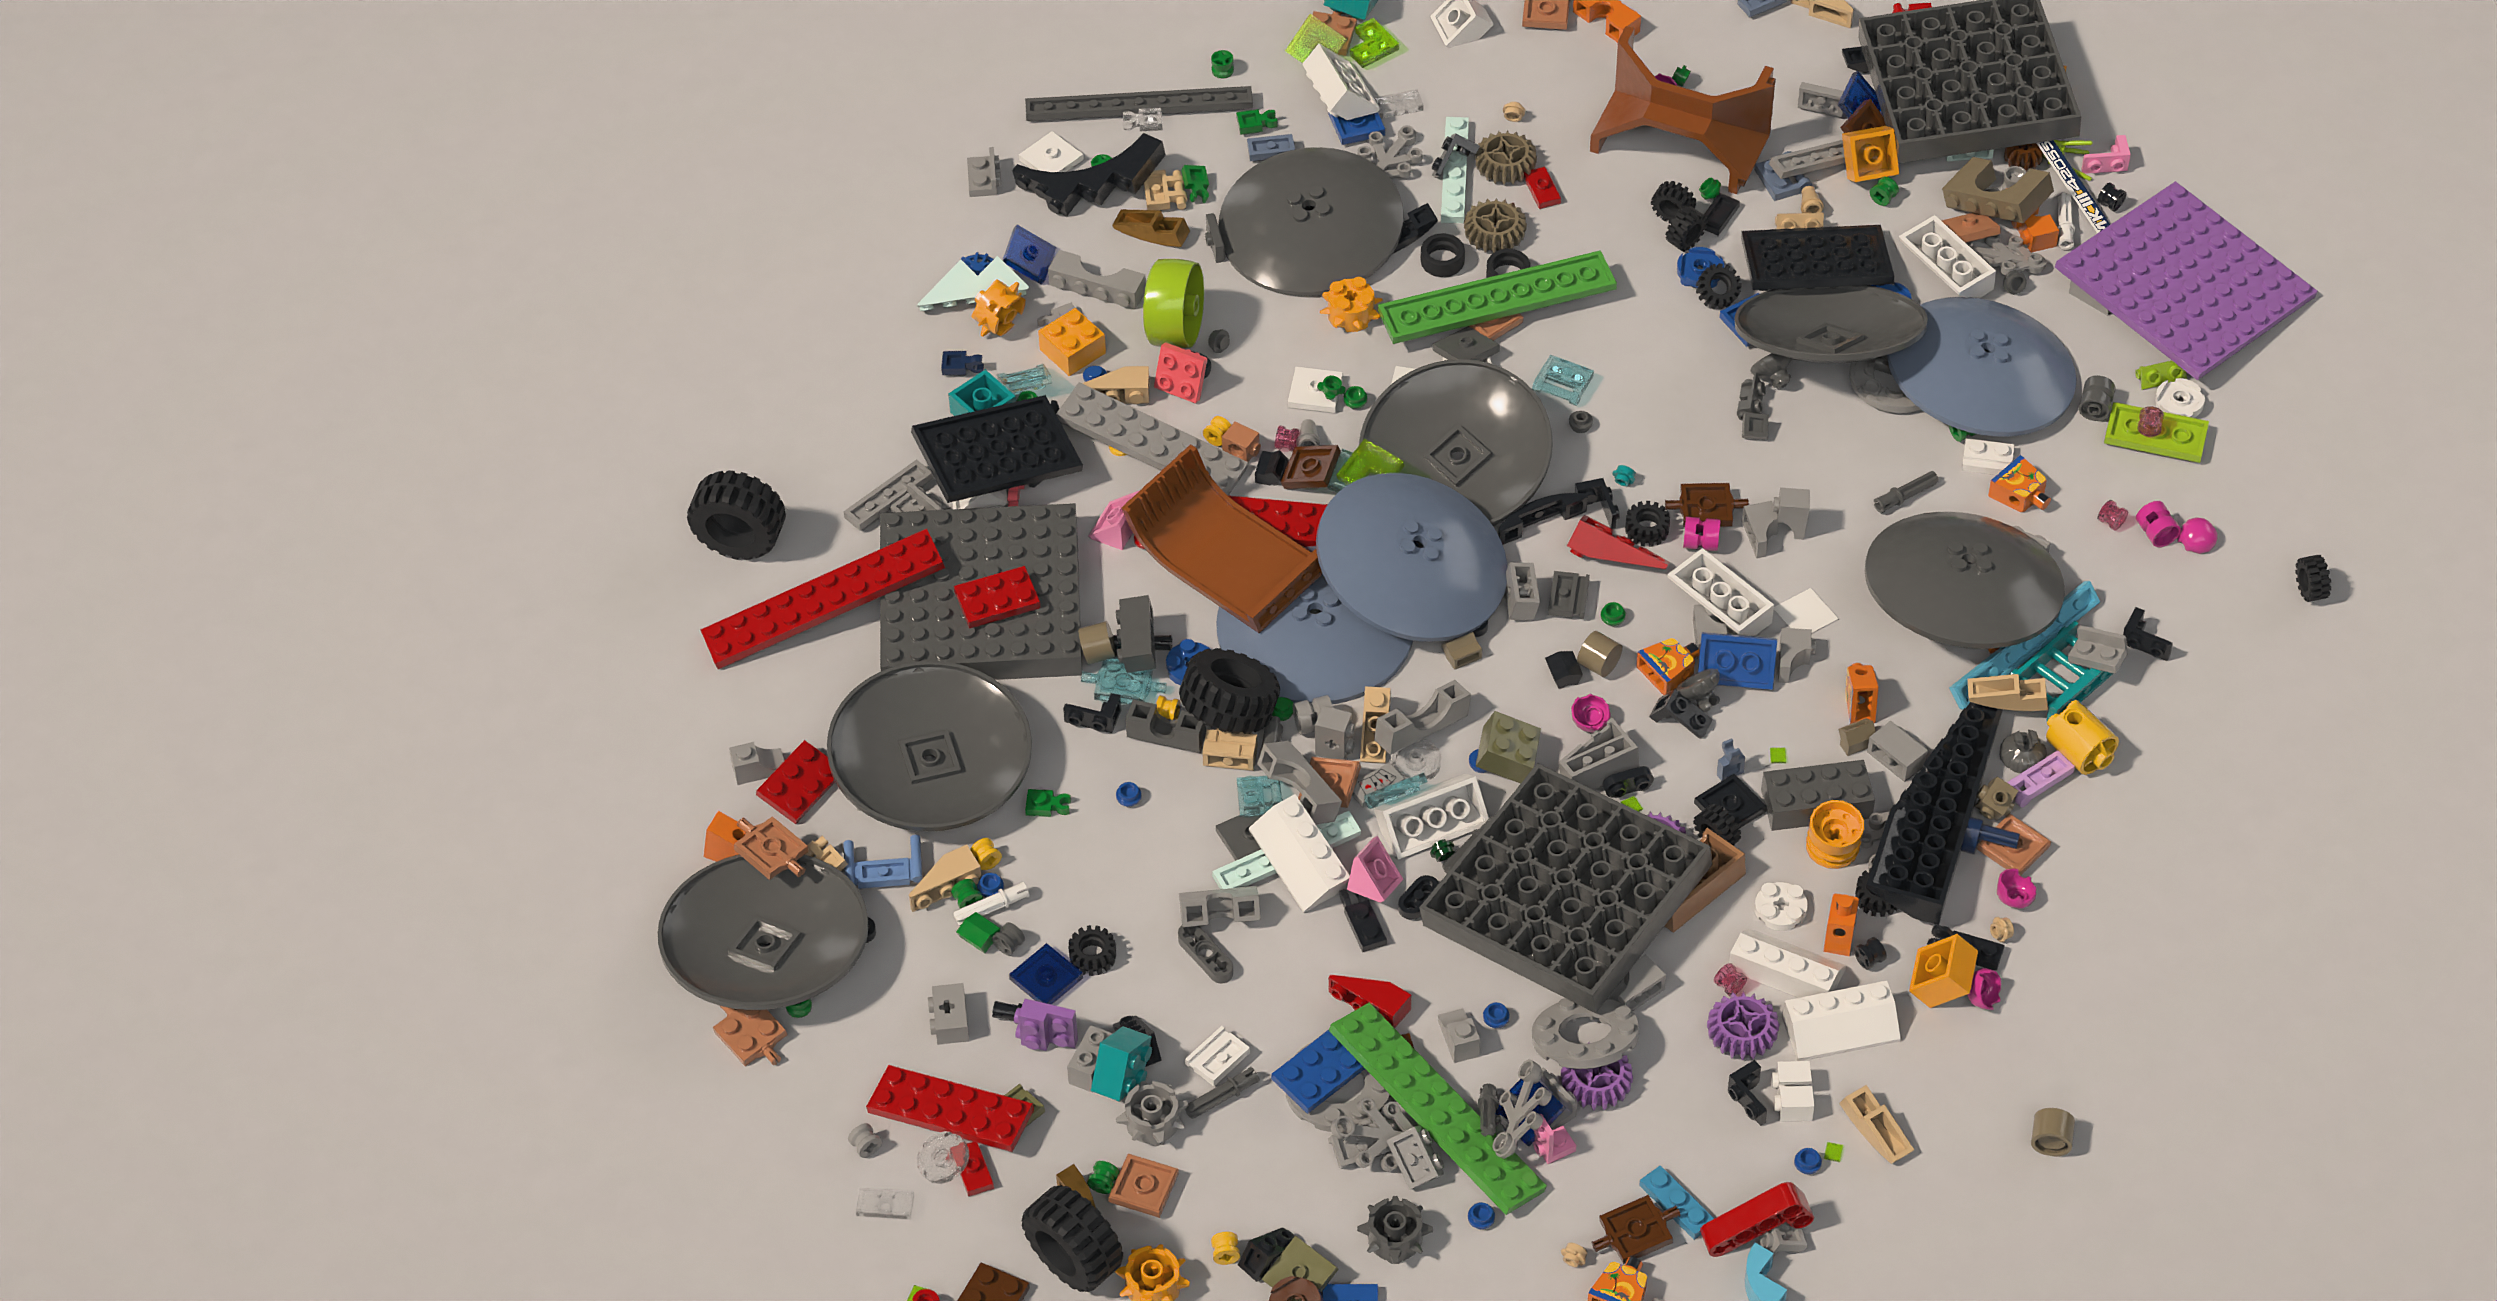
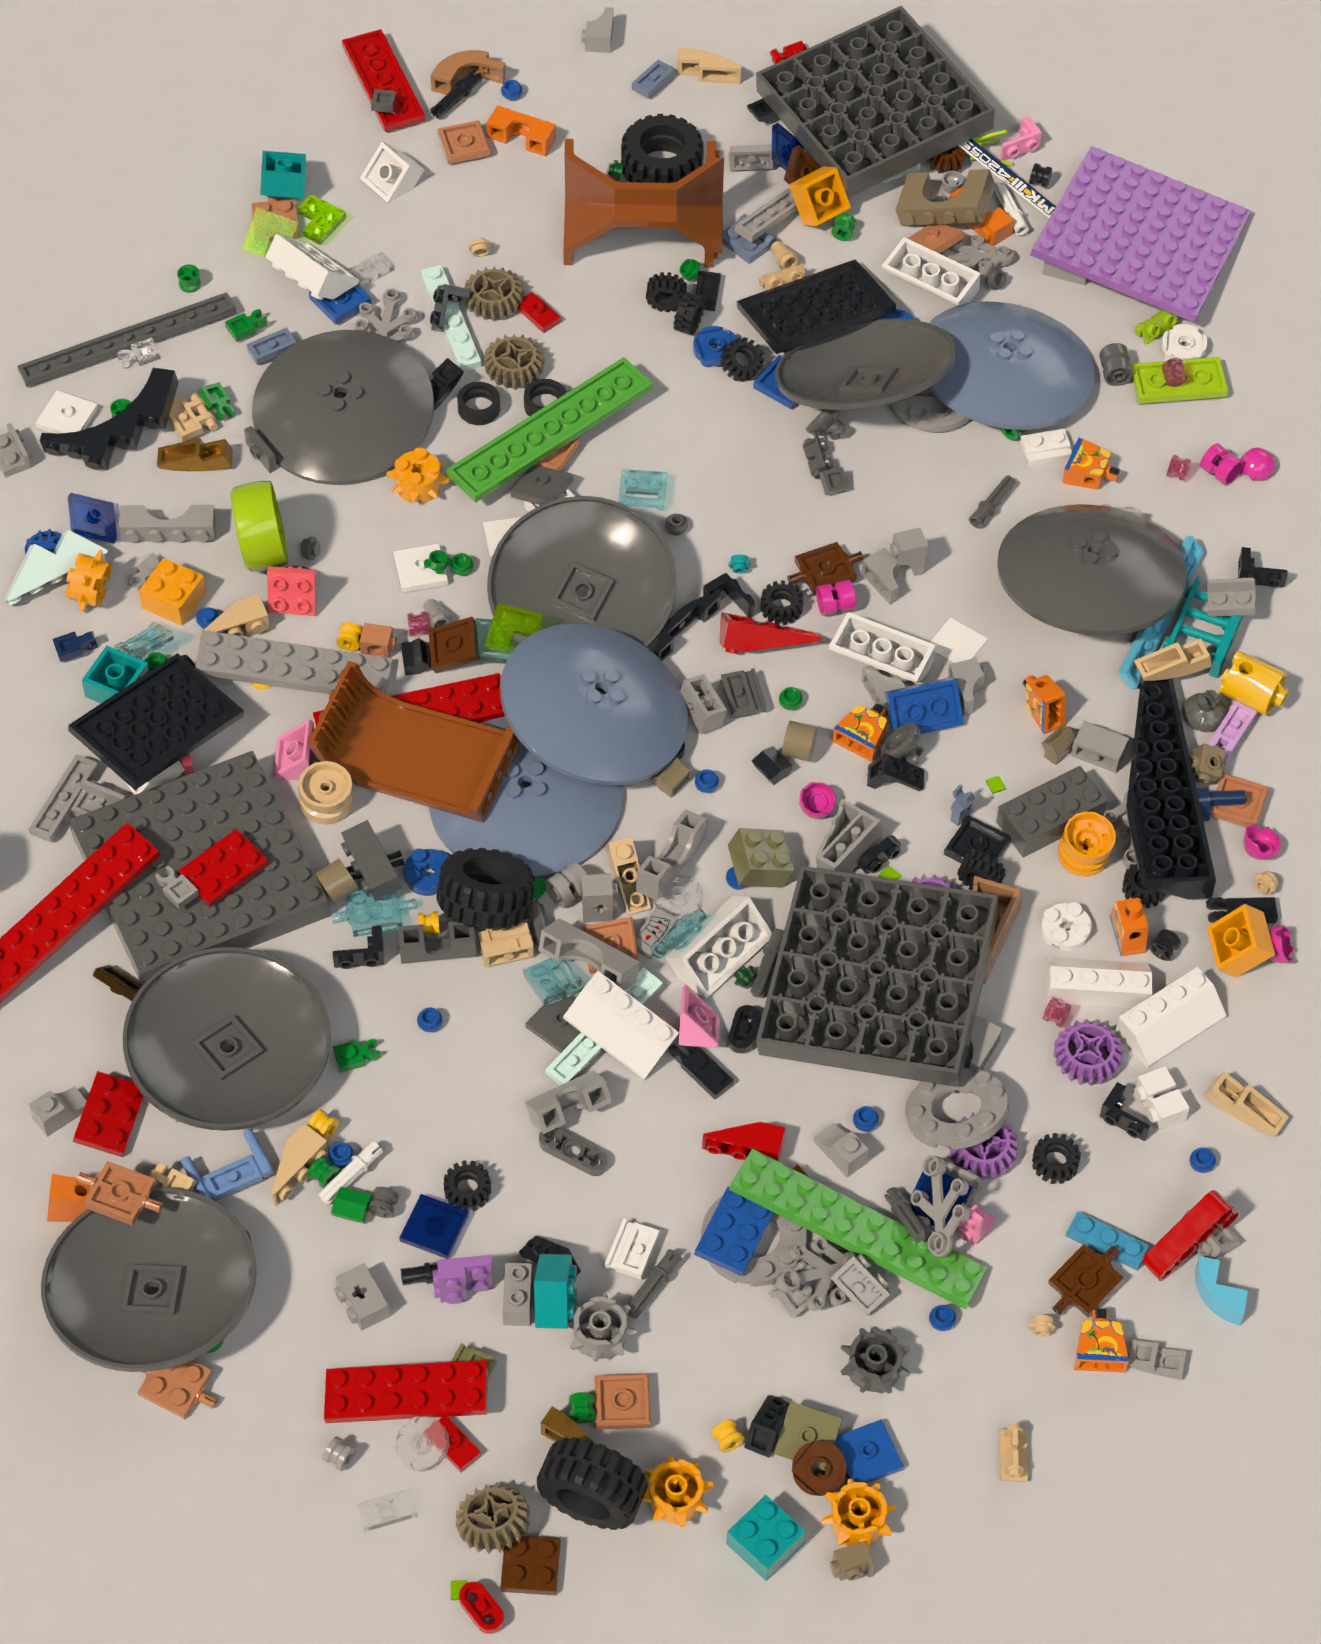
camera: 25 degrees left, 5 degrees up
(857, 665) = (117, 981): none -> dark brown plate
(945, 601) = (177, 890): none -> light grey plate
(974, 1241) = (509, 1513): none -> dark tan gear
(1126, 562) = (325, 792): none -> tan wheel
(1494, 664) = (706, 781): none -> blue plate
(1663, 1098) = (1059, 1145): none -> black tyre
(1729, 52) = (660, 134): none -> black tyre
(1833, 1152) = (1218, 1143): clear neon green window -> none

